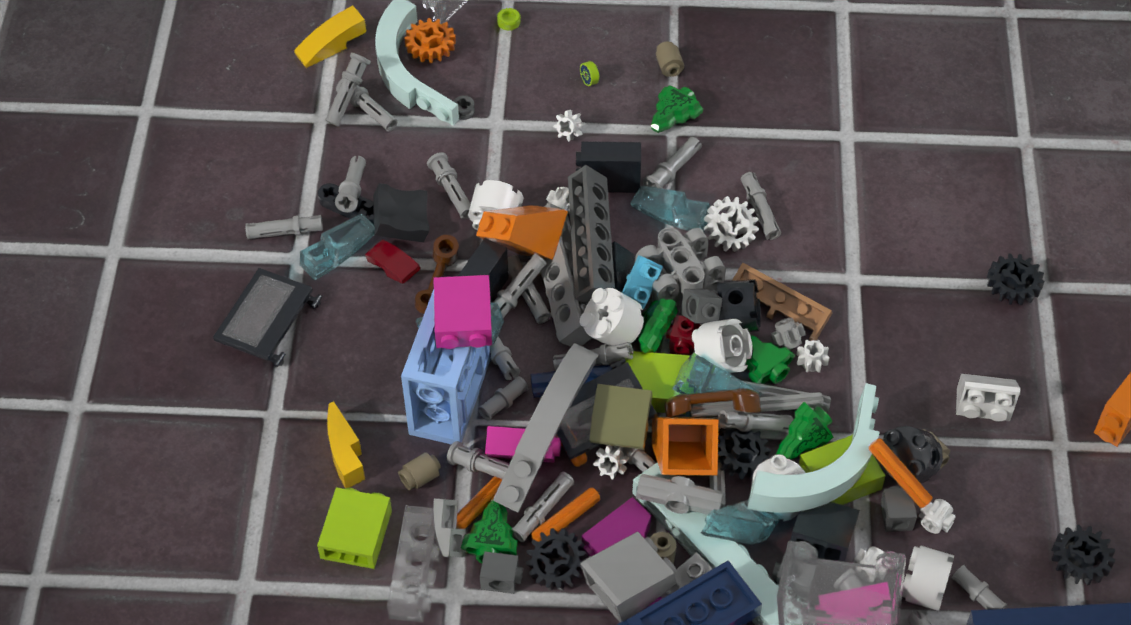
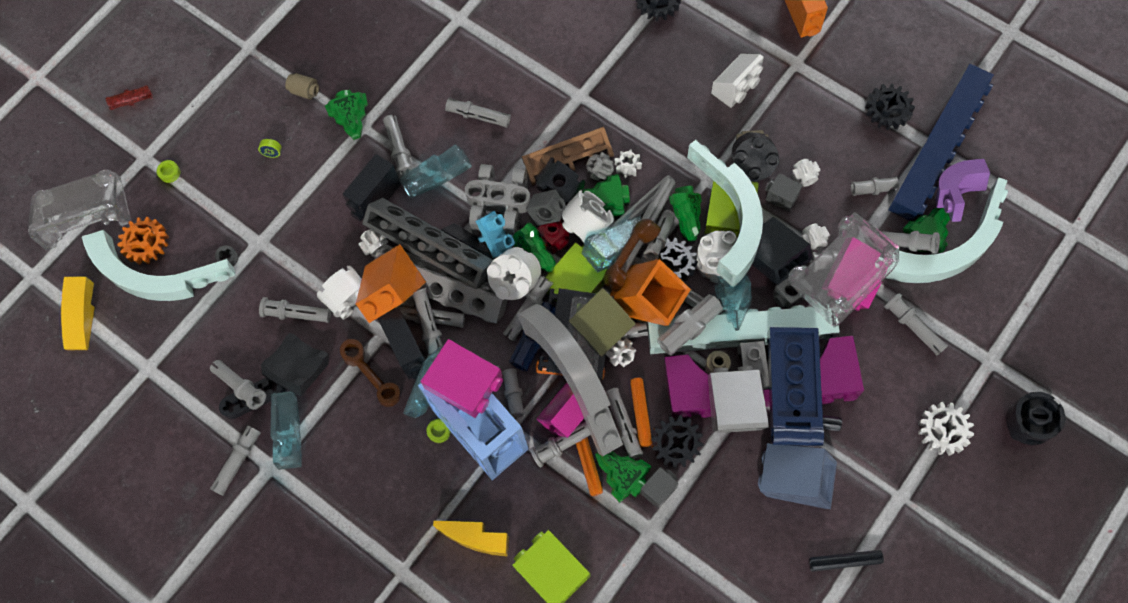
camera: 50 degrees left, 15 degrees up
(265, 315) = (309, 525): piece -> none
(351, 78) = (138, 322): light grey pin -> none
(361, 98) = (154, 329): light grey pin -> none
(393, 260) = (331, 397): dark red slope -> none
(413, 604) = (636, 574): clear brick -> none
(419, 471) = (535, 492): dark tan brick -> none
(445, 523) = (605, 504): light grey slope -> none
(575, 126) = (312, 196): white gear -> none
(722, 228) = (481, 142): white gear -> none
(900, 473) = (771, 172): orange axle -> none
(928, 578) = (849, 201): white brick -> none

